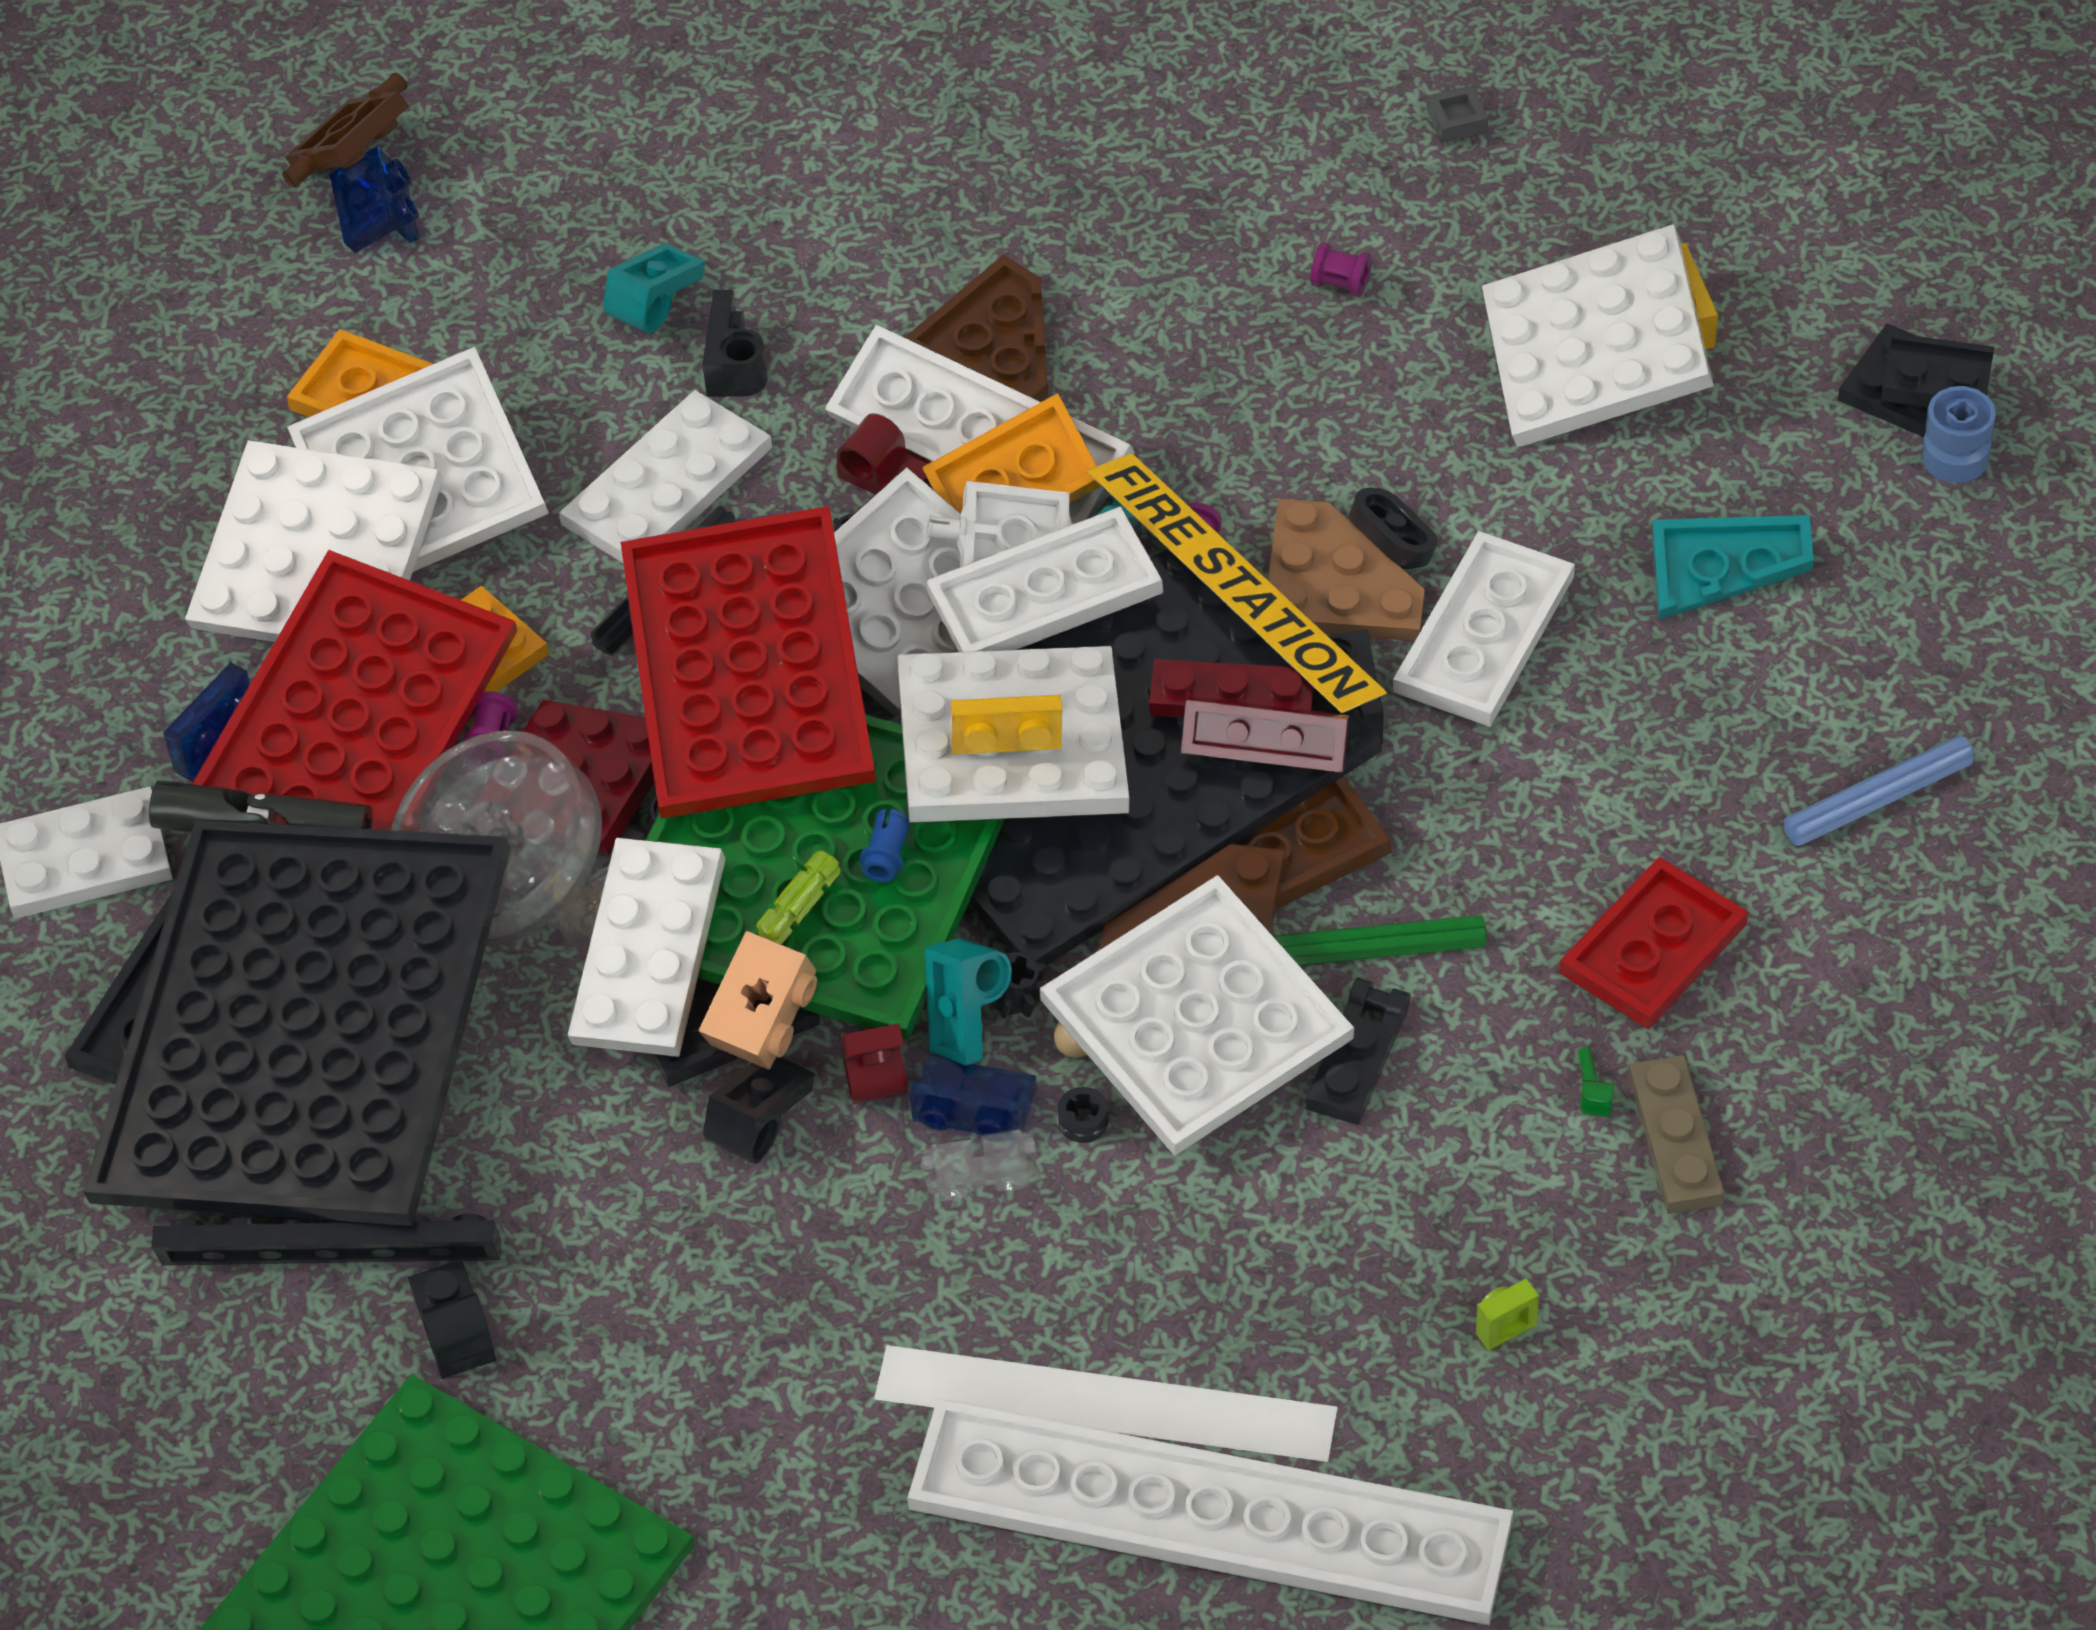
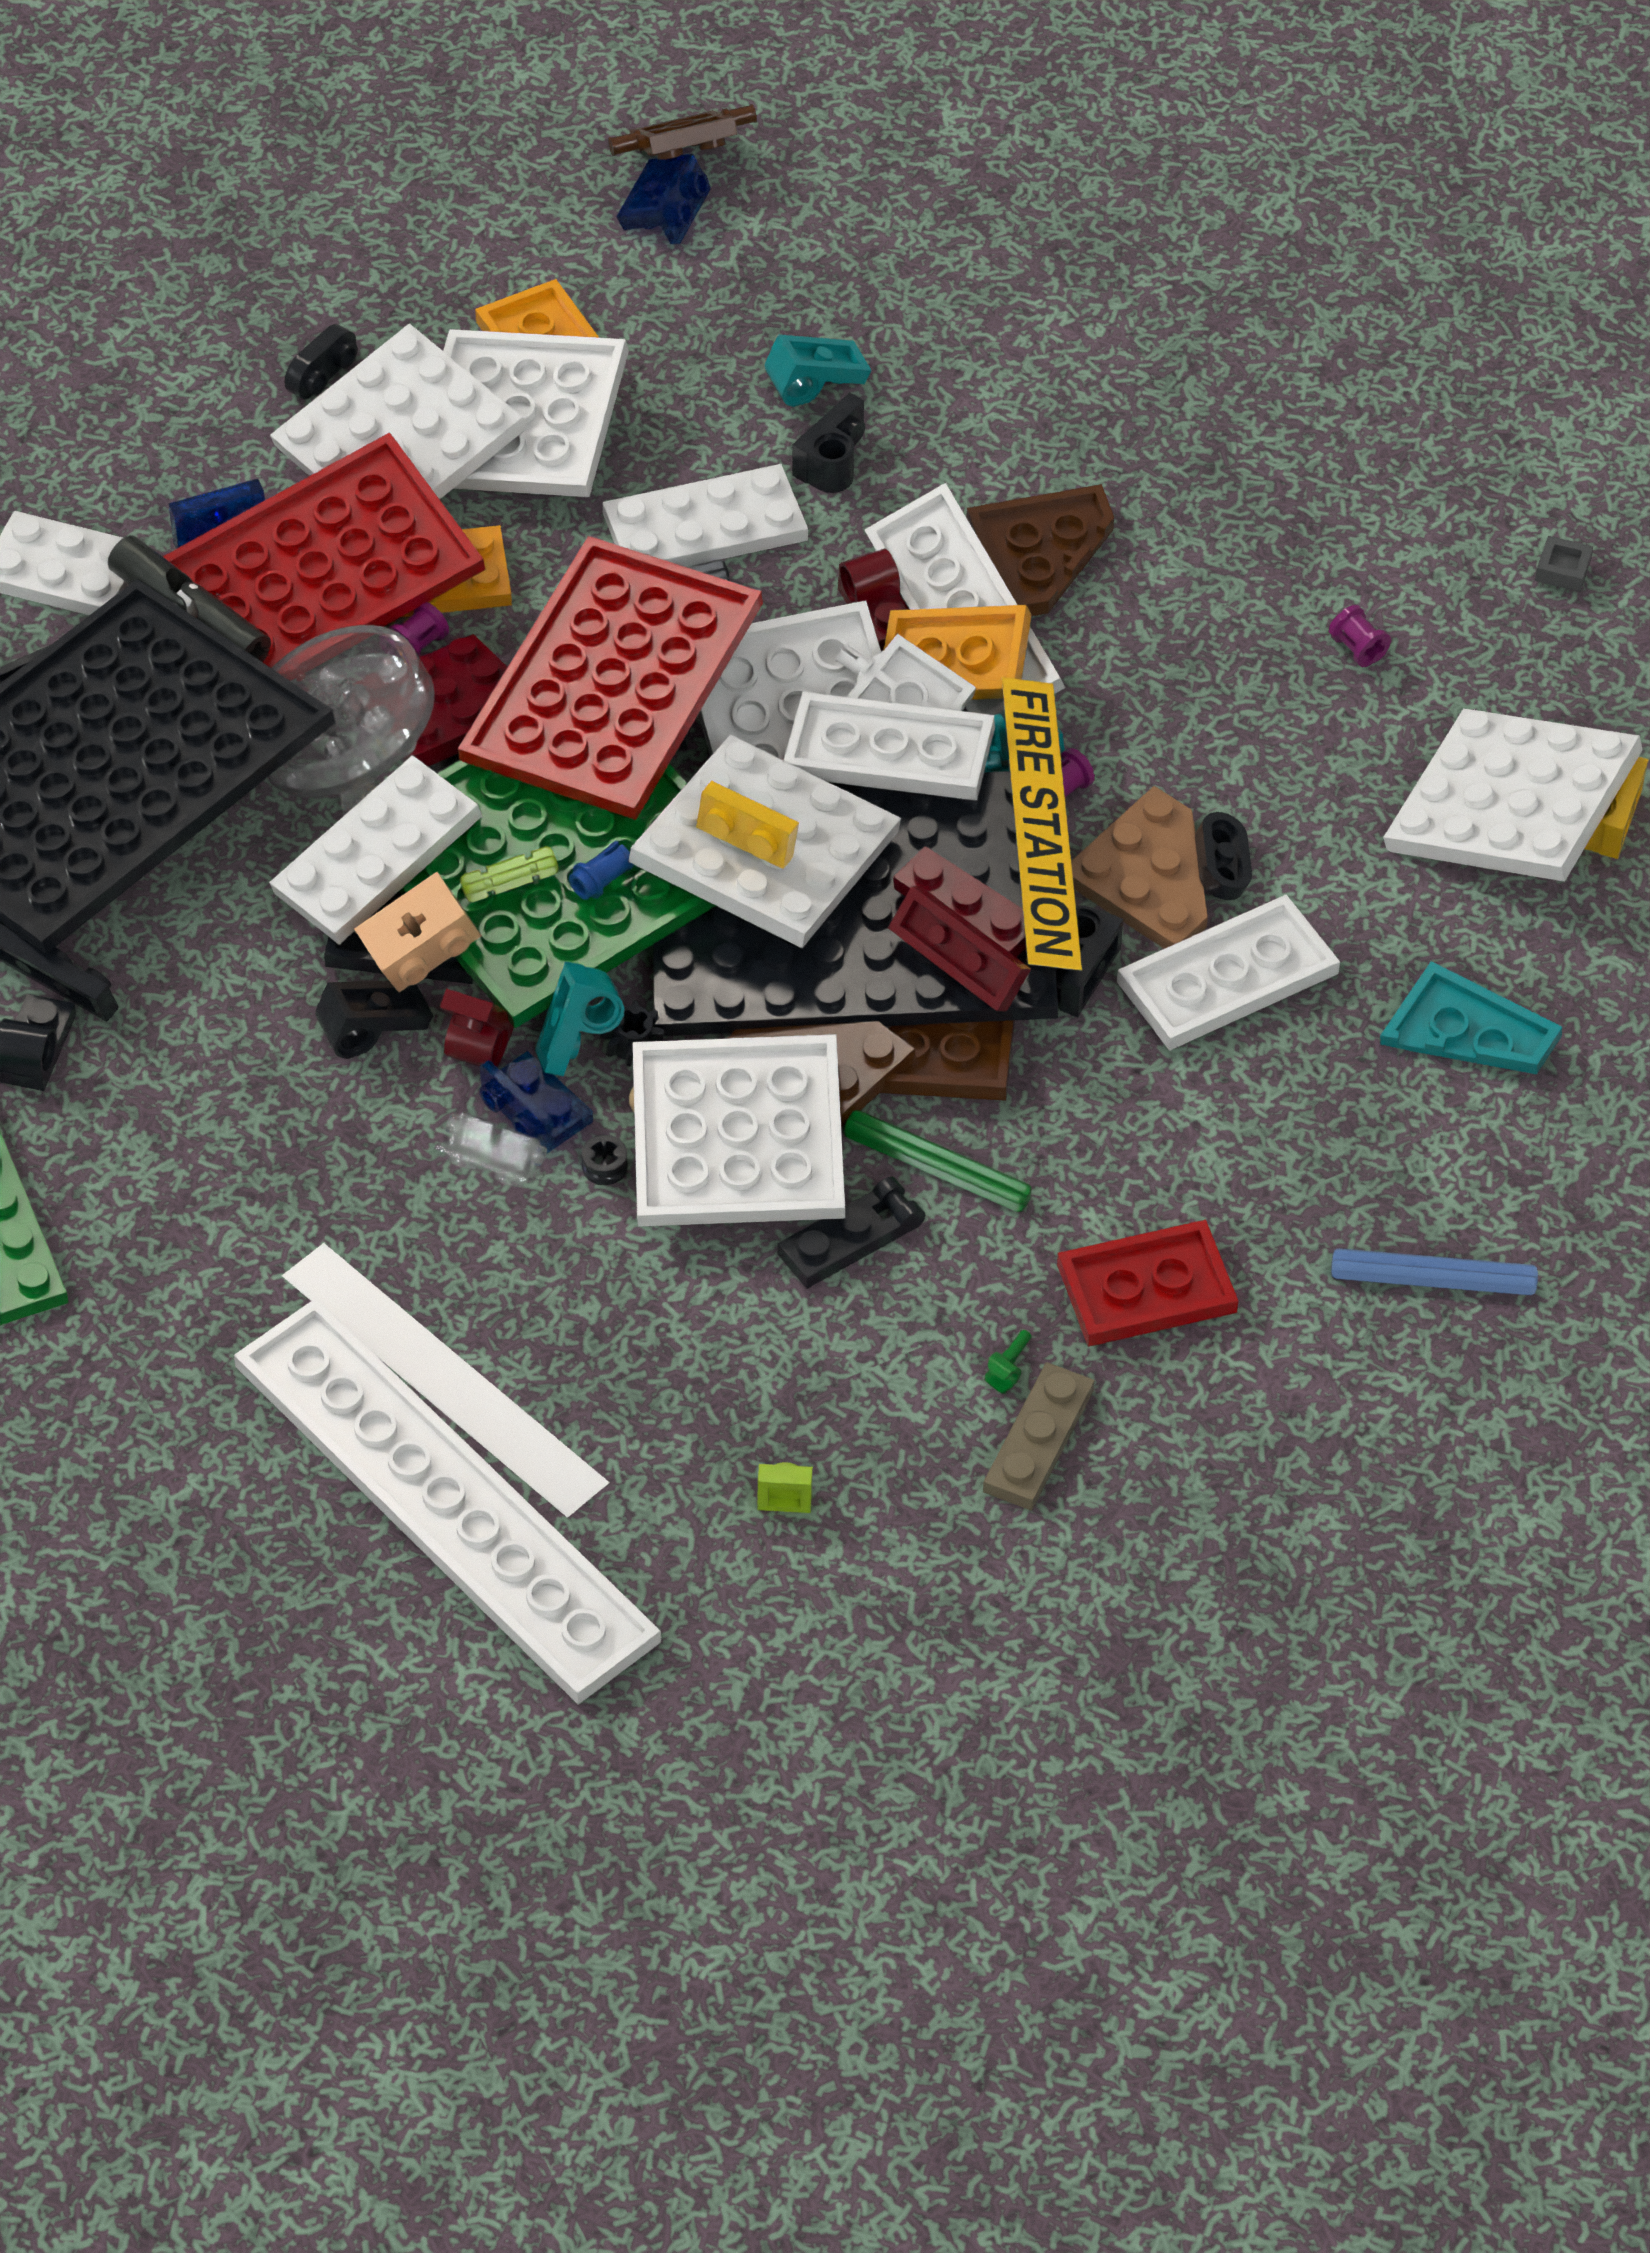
camera: 30 degrees right, 0 degrees up
(175, 532) = (321, 361): none -> black plate

